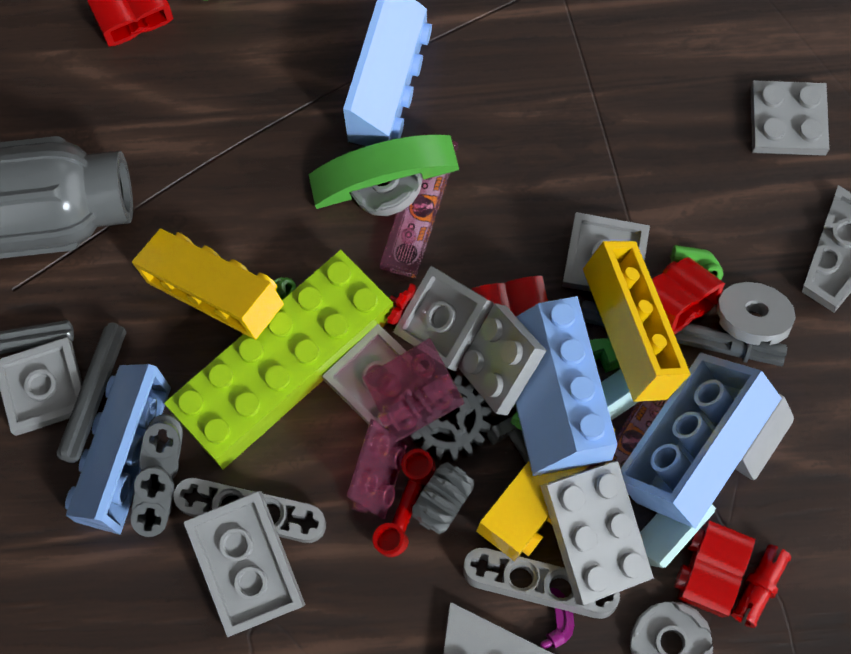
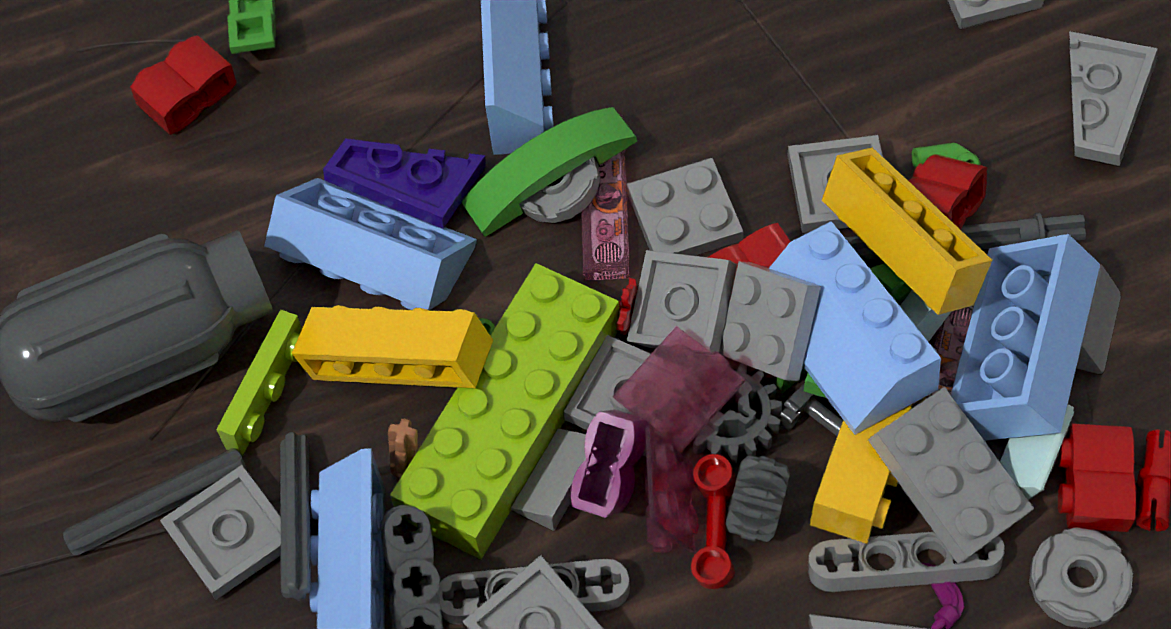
camera: 15 degrees left, 10 degrees down
(103, 277) = (261, 384): none -> lime plate
(186, 366) = (402, 446): none -> nougat axle
(225, 186) = (367, 243): none -> light blue slope
(275, 146) = (409, 182): none -> dark purple wing
(300, 425) = (549, 485): none -> light grey slope
(338, 432) = (607, 475): none -> magenta brick
(477, 238) = (685, 210): none -> light grey plate
(775, 308) = (1033, 190): light grey tile -> none

